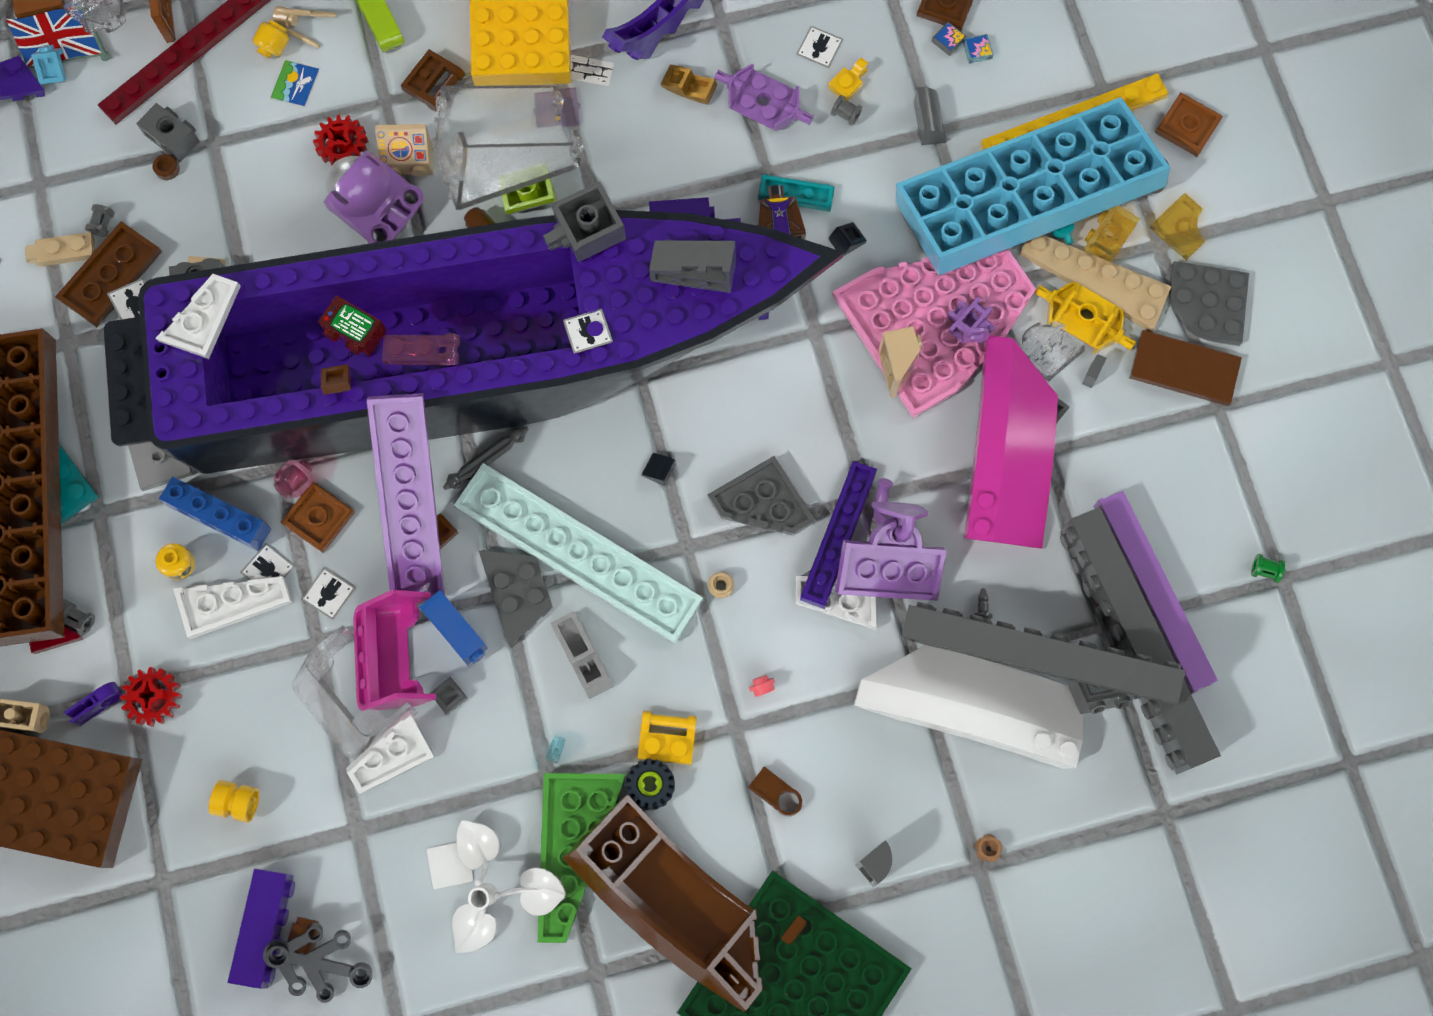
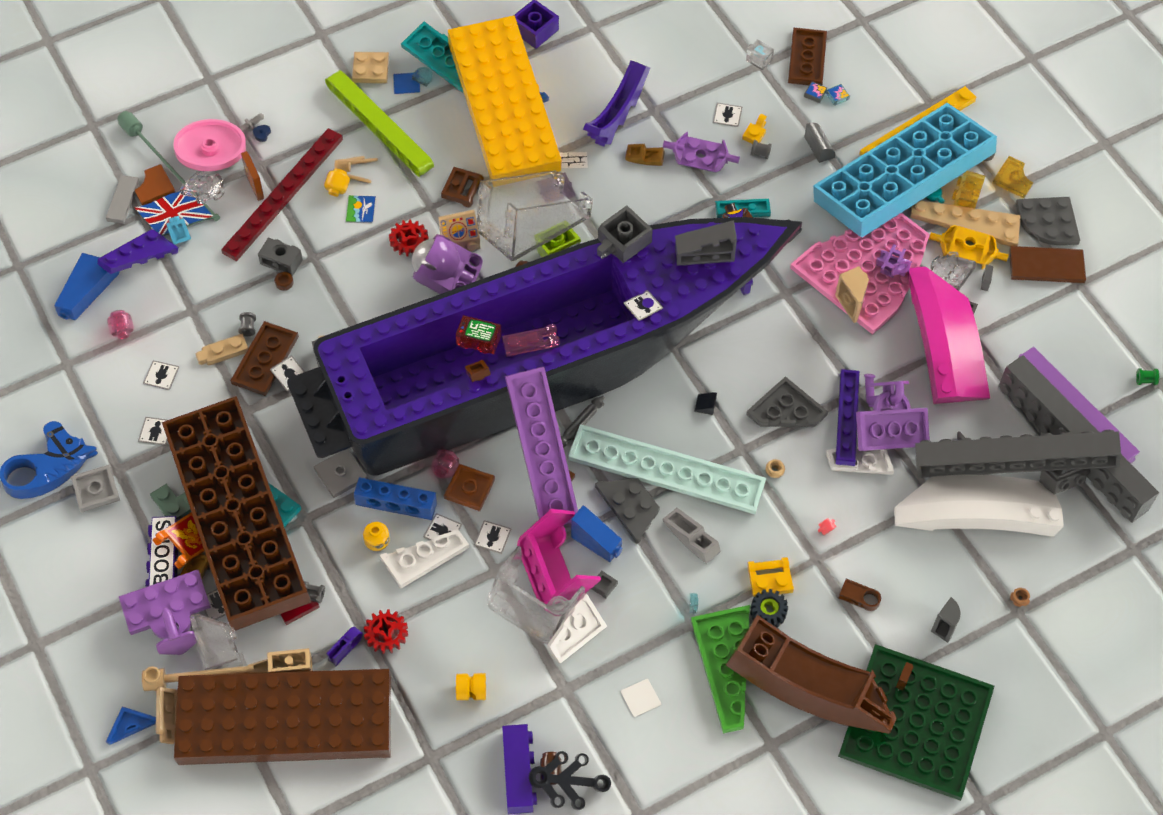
camera: 15 degrees left, 15 degrees down
(203, 319) = (368, 354): white wing -> none
(470, 923) = (671, 732): white plant -> none
(1188, 124) = (996, 114): dark orange tile -> none

